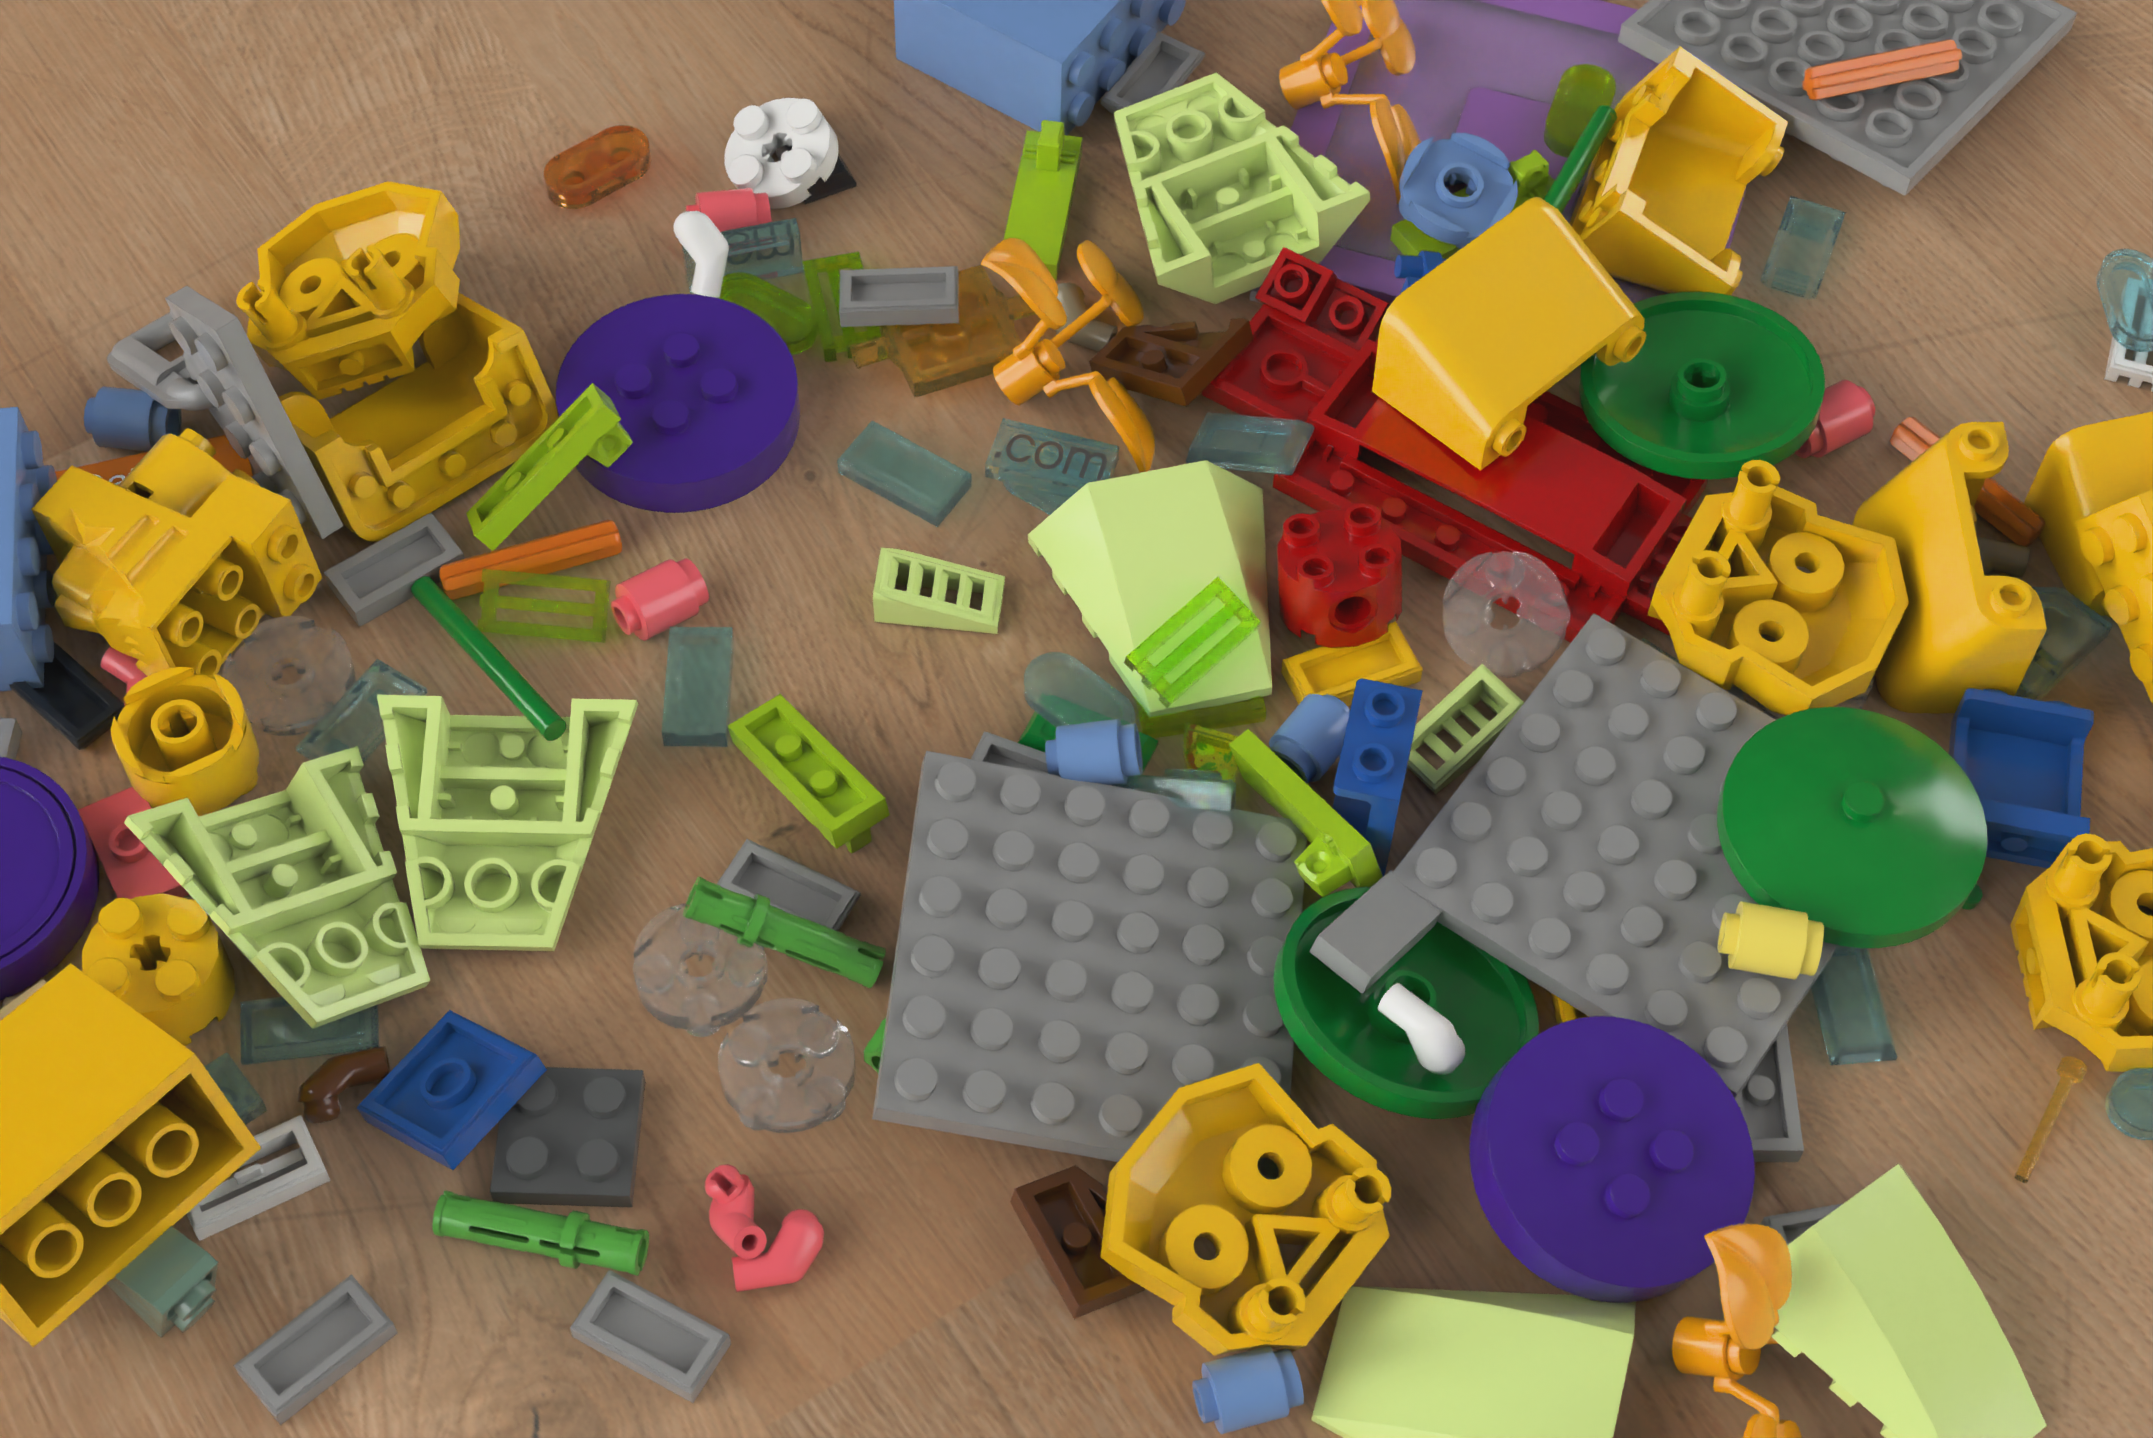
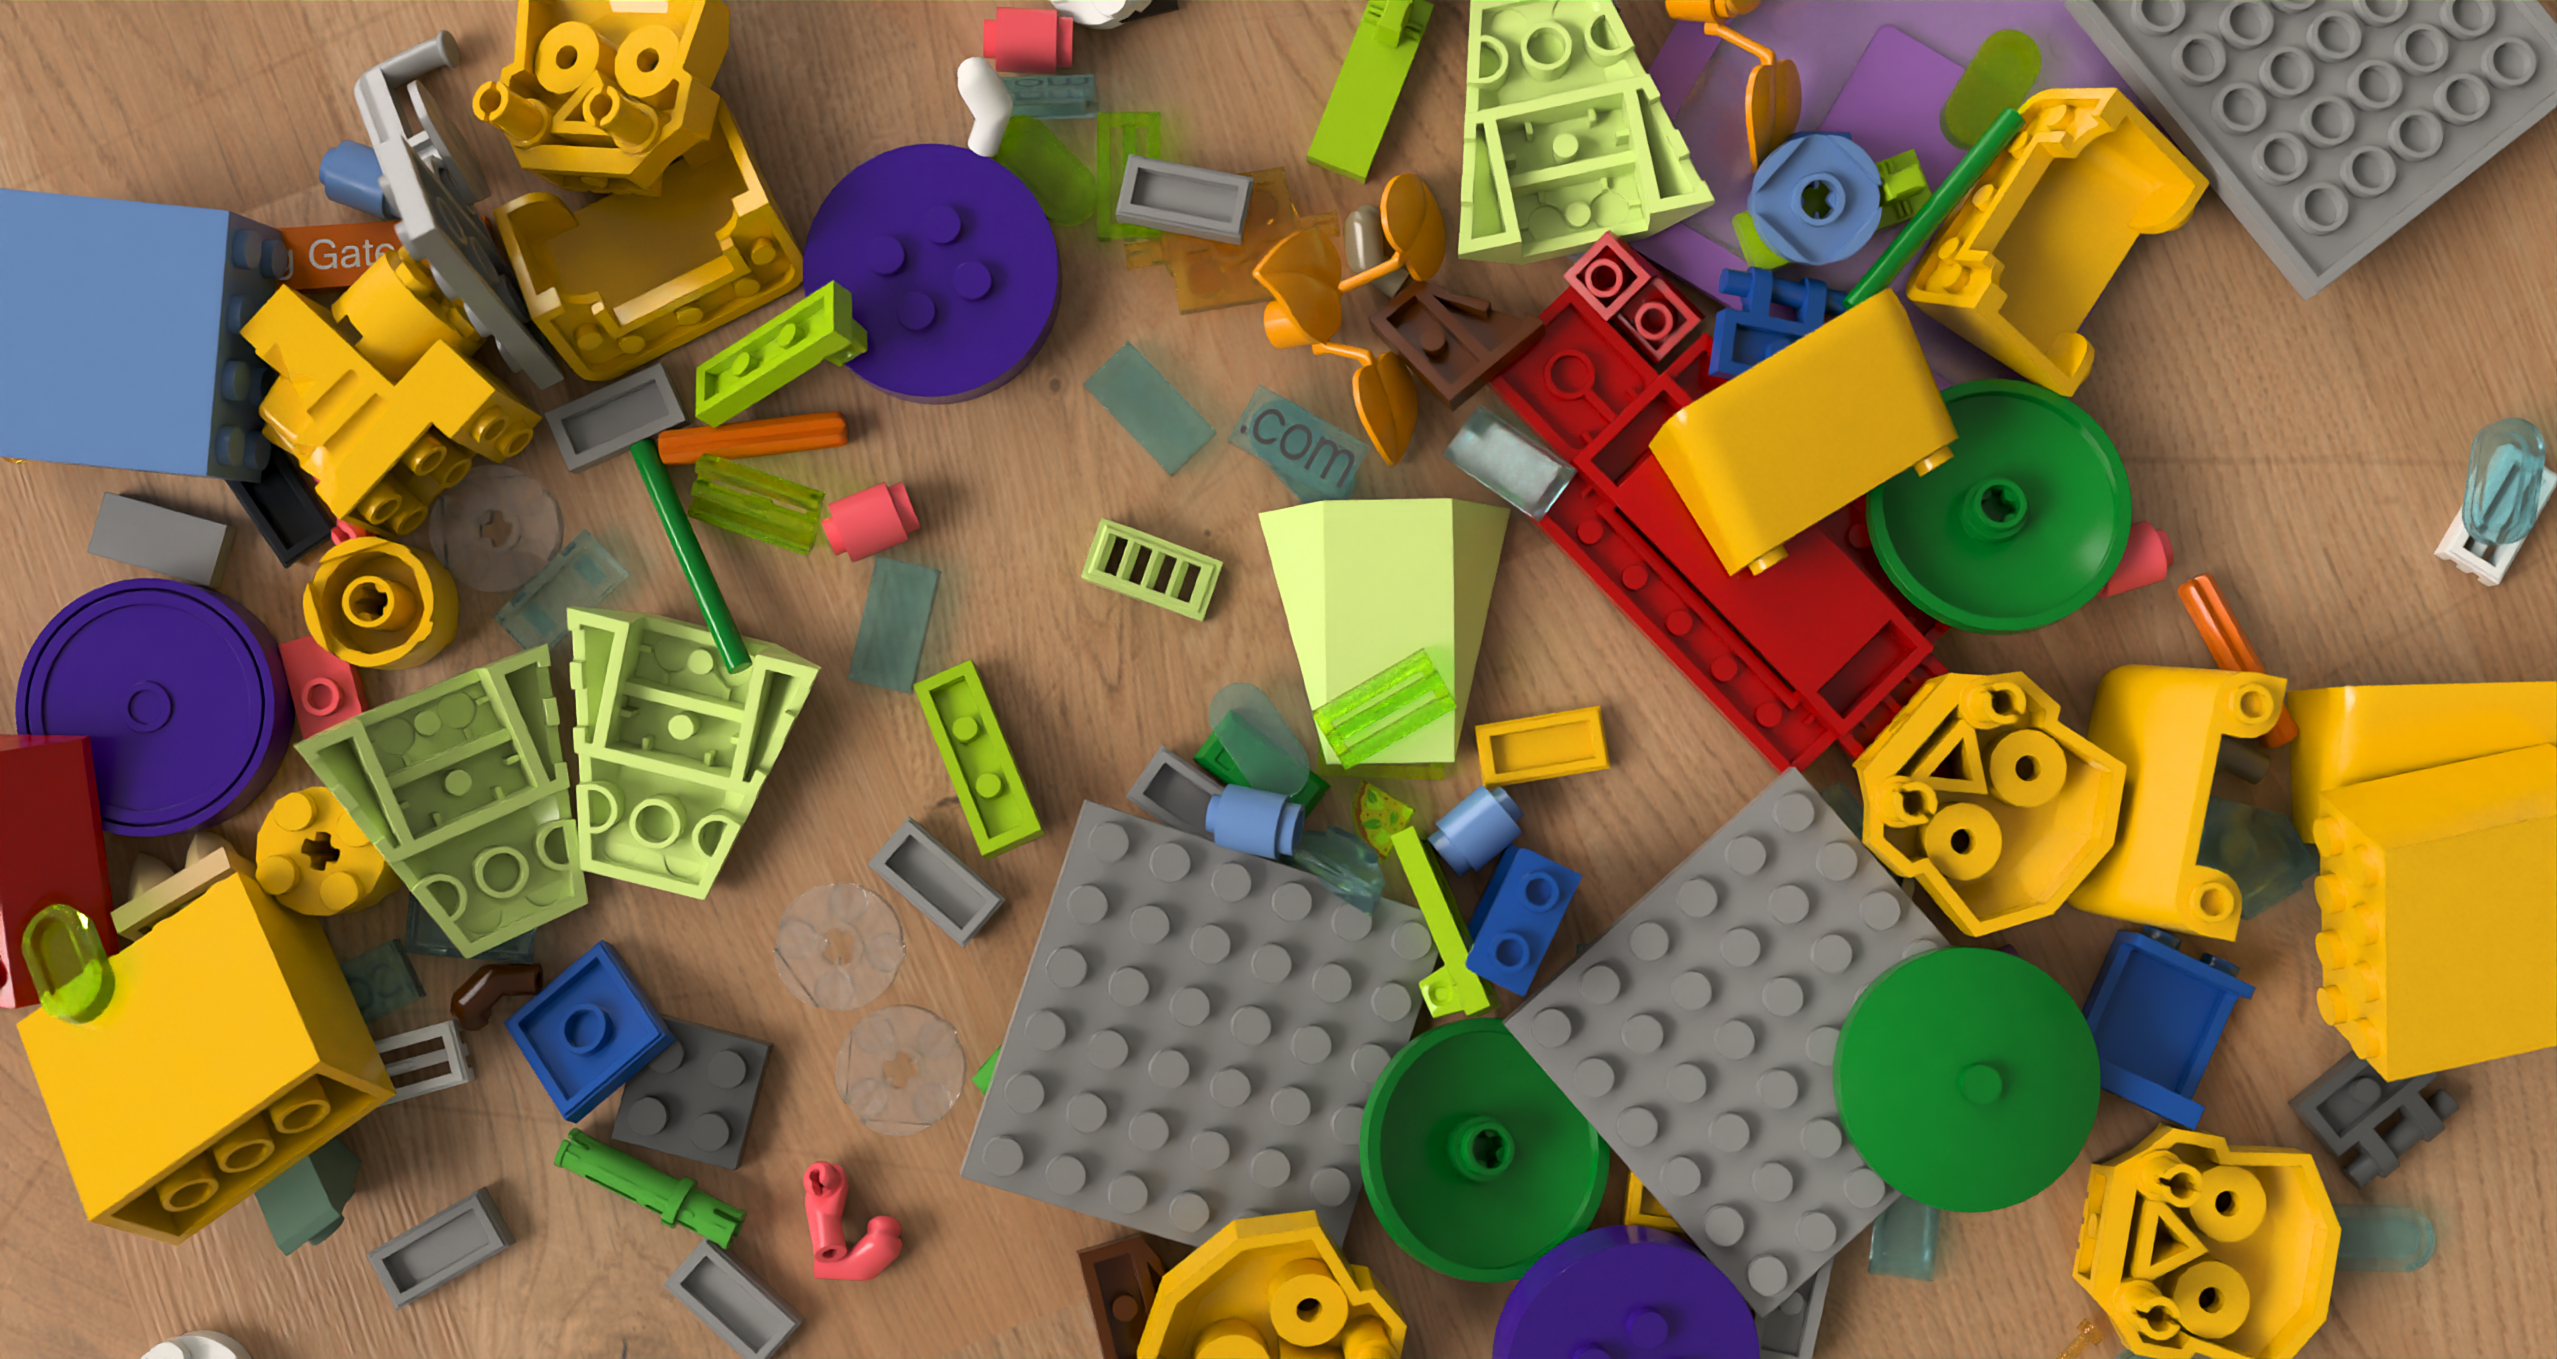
camera: 10 degrees right, 30 degrees up
(775, 929) = (896, 936): bright green pin -> none
(1340, 575) = (1554, 657): red brick -> none
(1375, 932) = (1473, 1085): light grey tile -> none
(1428, 1031) = (1495, 1215): white arm -> none
(1477, 686) = (1676, 817): yellowish green slope -> none
(1541, 614) = (1722, 703): clear plate -> none
(1771, 941) = (1842, 1199): light yellow brick -> none
(1802, 248) = (2174, 320): clear light blue tile -> none
(1881, 69) = (2341, 133): orange axle -> none

